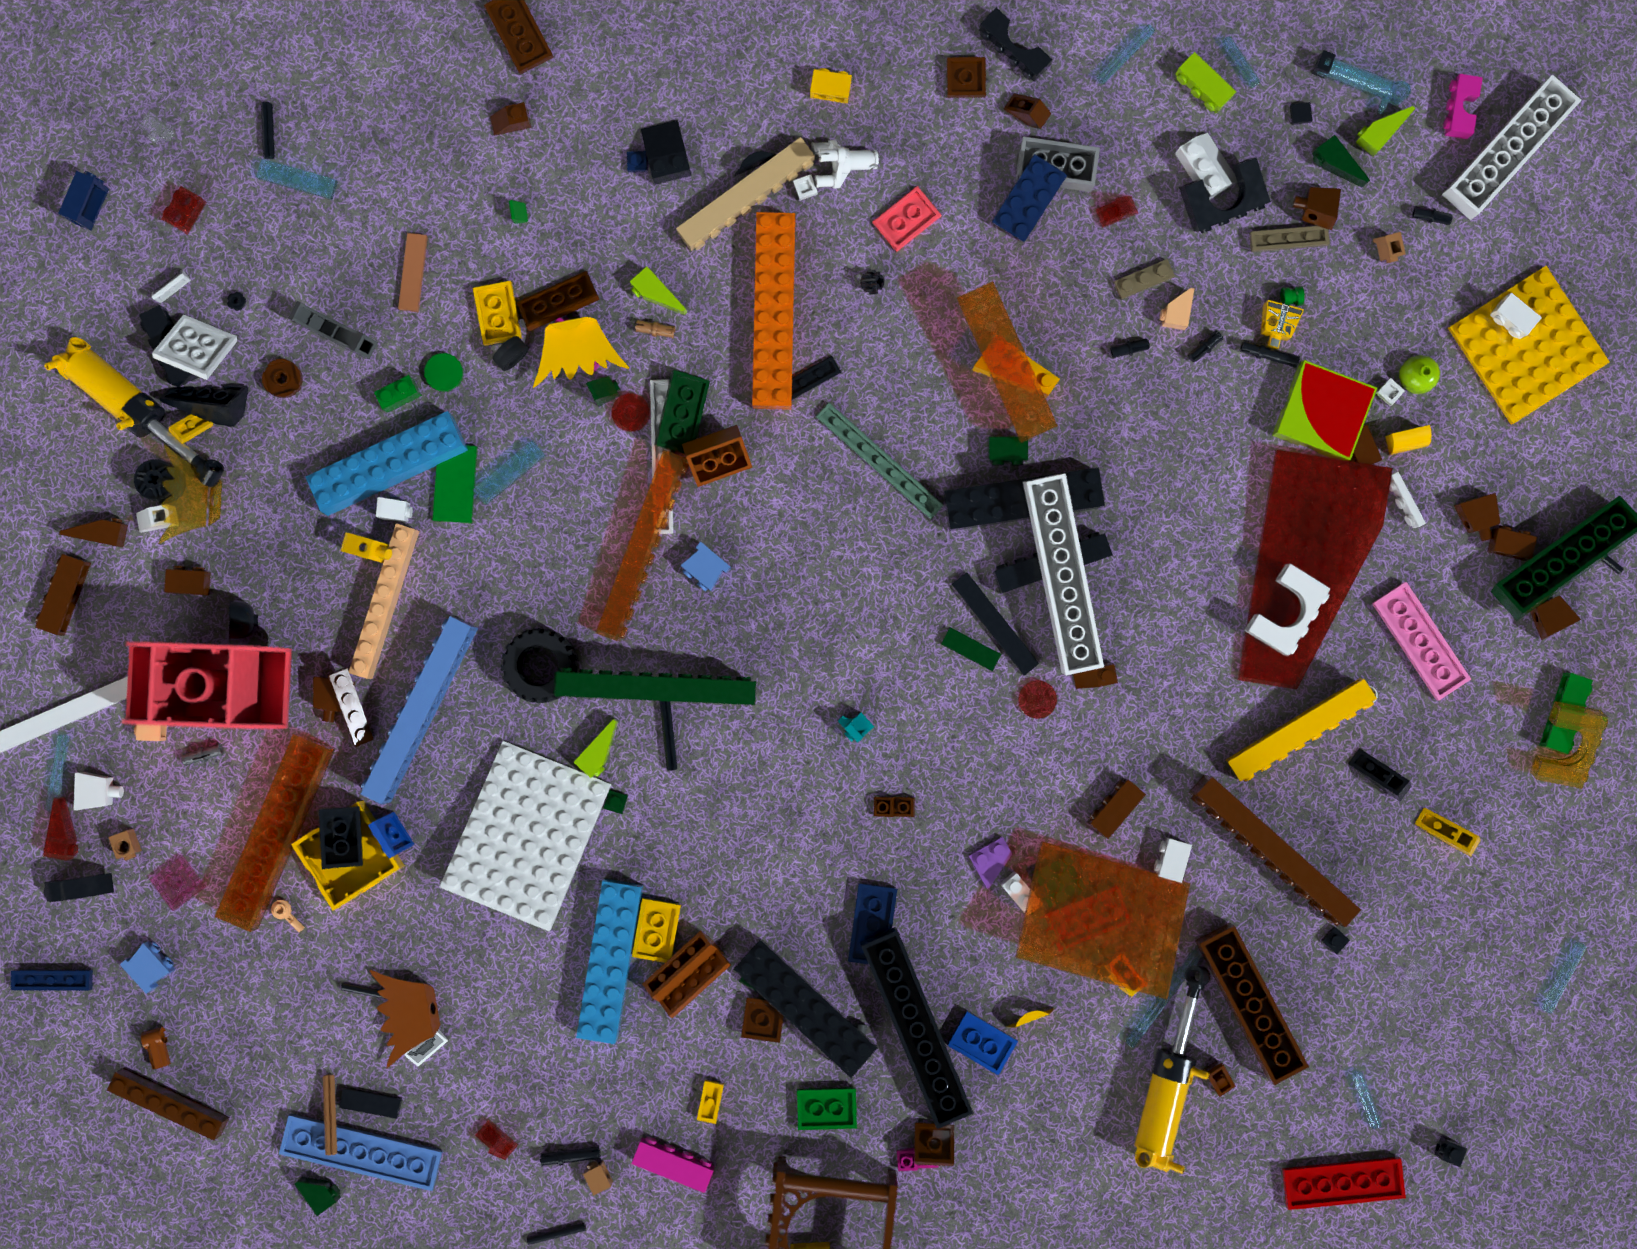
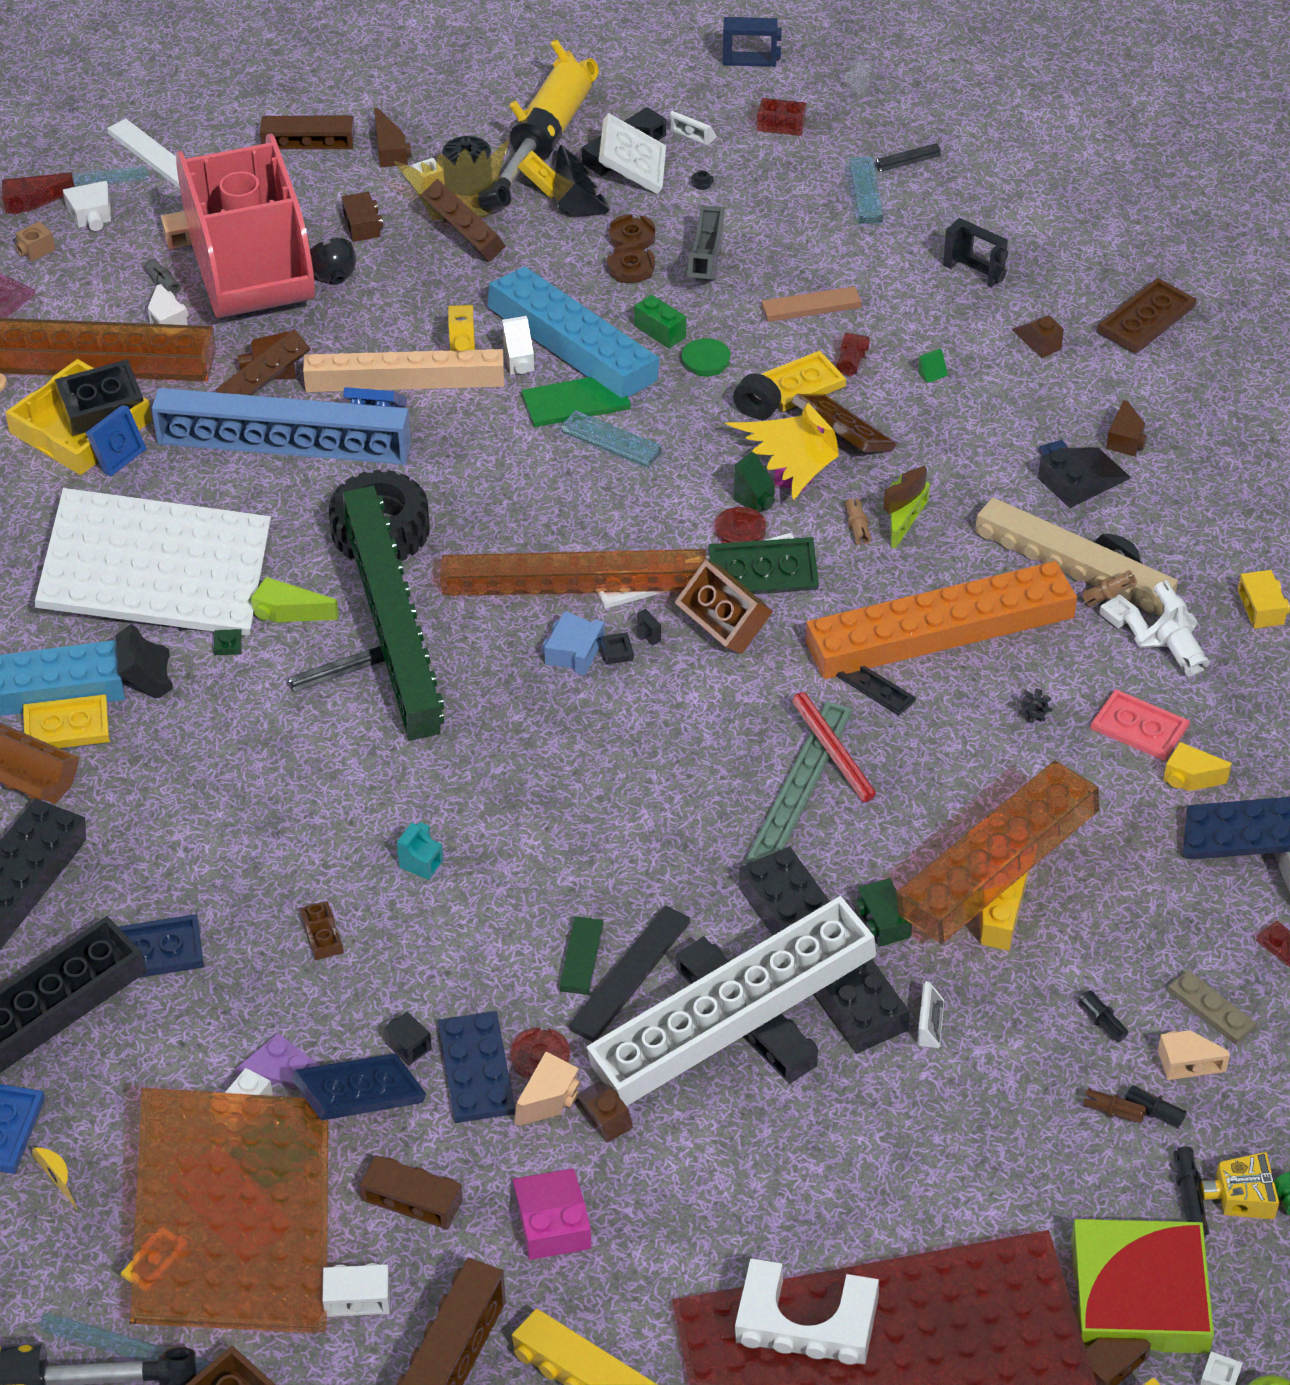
camera: 75 degrees right, 40 degrees down
(214, 513) = (463, 219): none -> reddish brown arch
(249, 763) = (166, 309): none -> white slope
(311, 383) = (641, 268): none -> reddish brown plate
(399, 135) = (959, 248): none -> black window
(416, 634) = (374, 397): none -> blue plate
(479, 262) = (852, 352): none -> clear red piece
(627, 867) = (143, 662): none -> black brick
(636, 102) = (1127, 431): none -> reddish brown slope
(653, 284) = (902, 494): none -> reddish brown slope
(709, 512) = (648, 627): none -> black plate
(719, 539) = (617, 648): none -> black plate
(790, 186) = (1109, 588): none -> medium nougat pin
(861, 428) = (834, 747): none -> axle
(960, 204) = (1195, 769): none -> yellow slope
(1002, 778) = (407, 1038): none -> black brick
(1033, 741) = (476, 1067): none -> dark blue plate
(1039, 820) = (358, 1086): none -> dark blue plate
(1082, 708) = (548, 1091): none -> light nougat slope
(1094, 453) = (930, 1017): none -> slope
(1155, 729) = (552, 1214): none -> dark pink slope
(1196, 371) = (1115, 1106): none -> reddish brown axle

